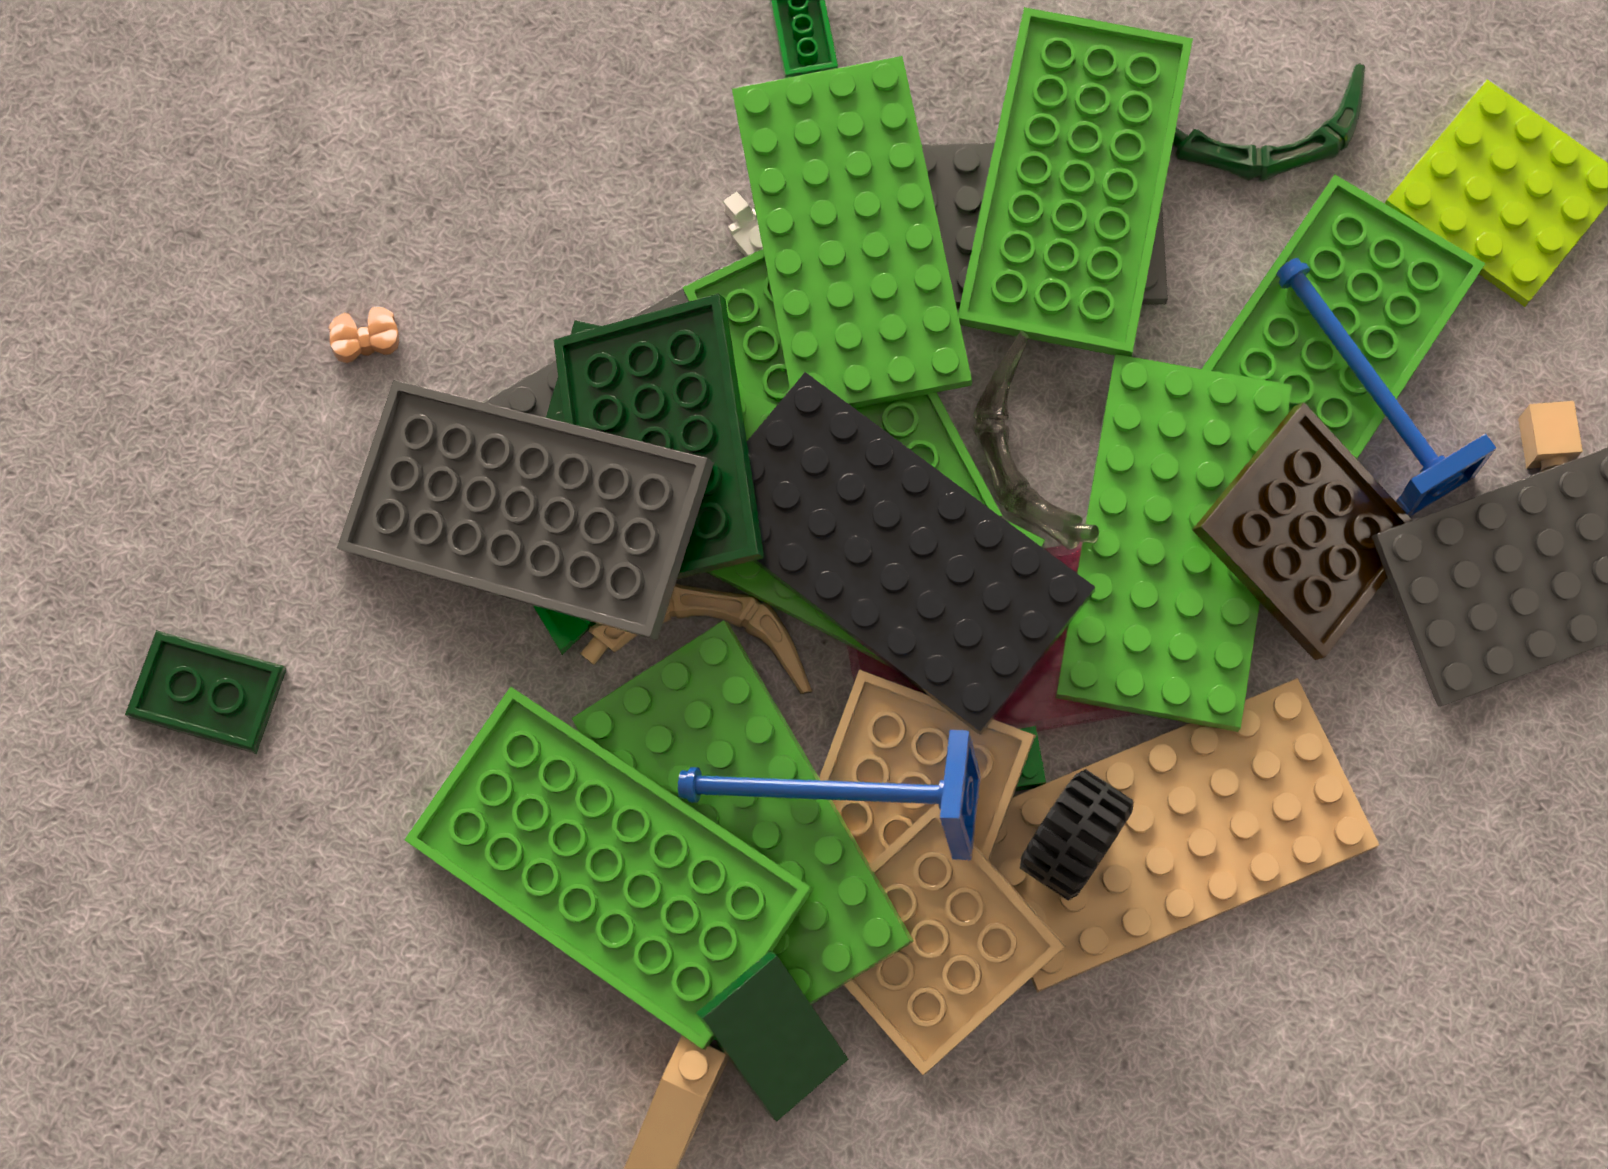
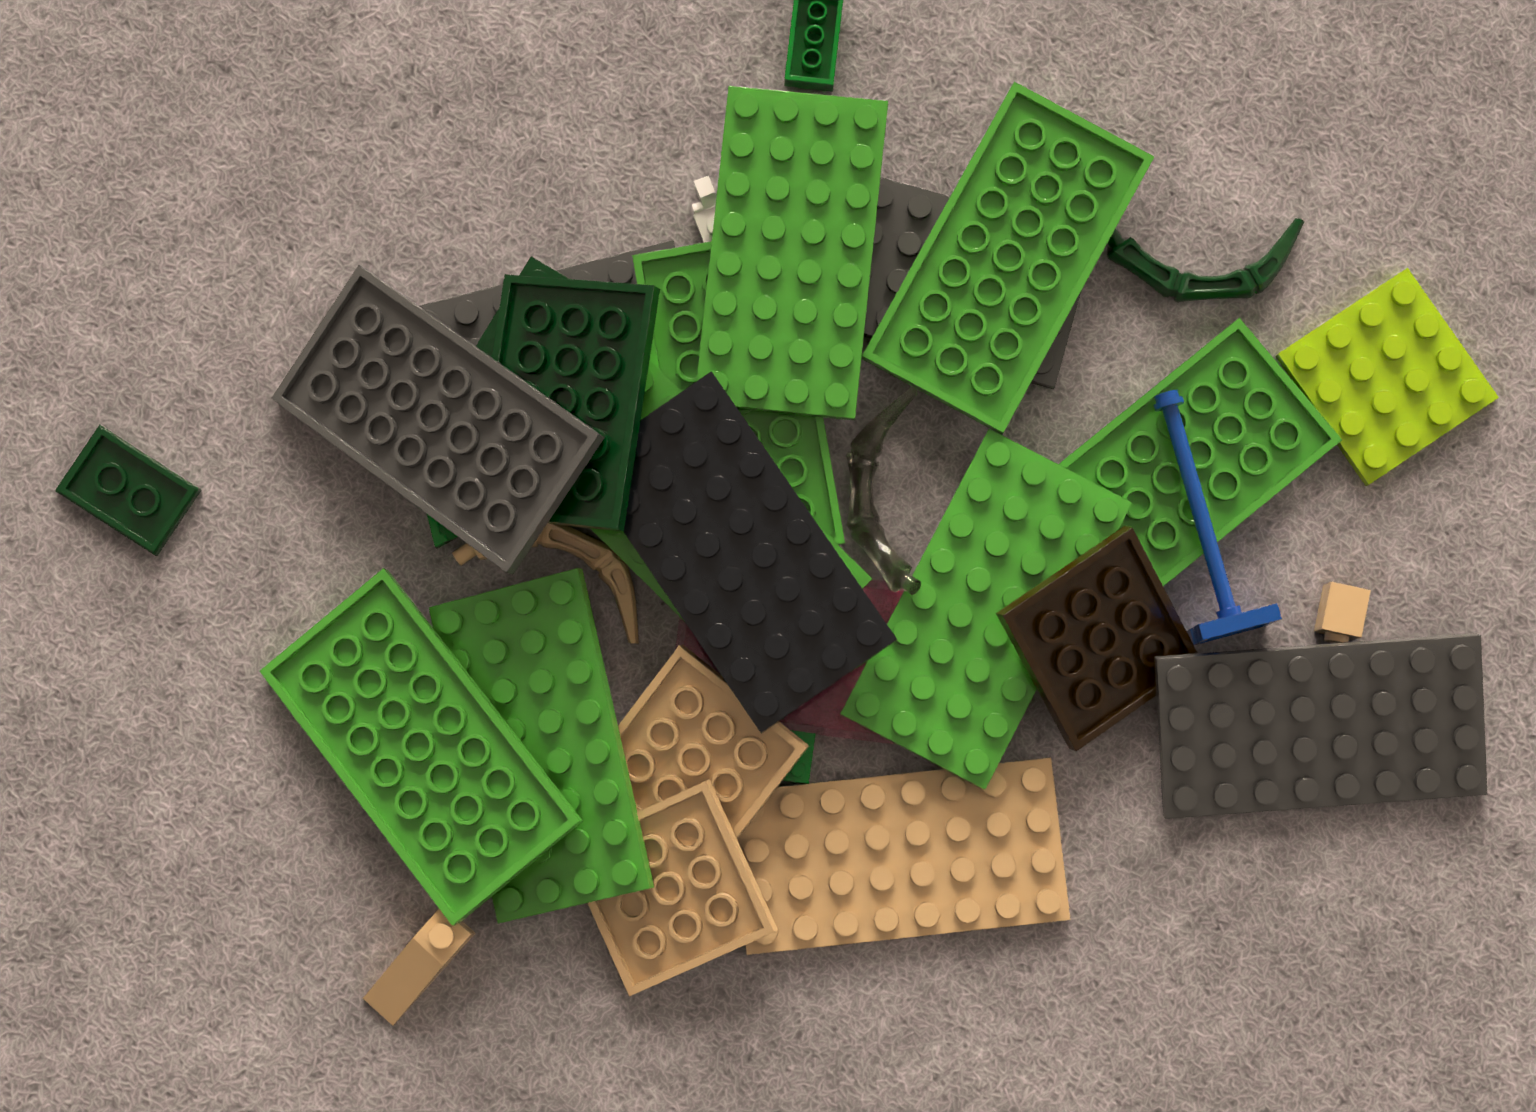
camera: 10 degrees right, 10 degrees up
(379, 336) = (333, 212): piece -> none
(772, 1036) = (513, 930): dark green tile -> none
(955, 794) = (720, 784): blue tile -> none
(1076, 834) = (813, 843): black tyre -> none

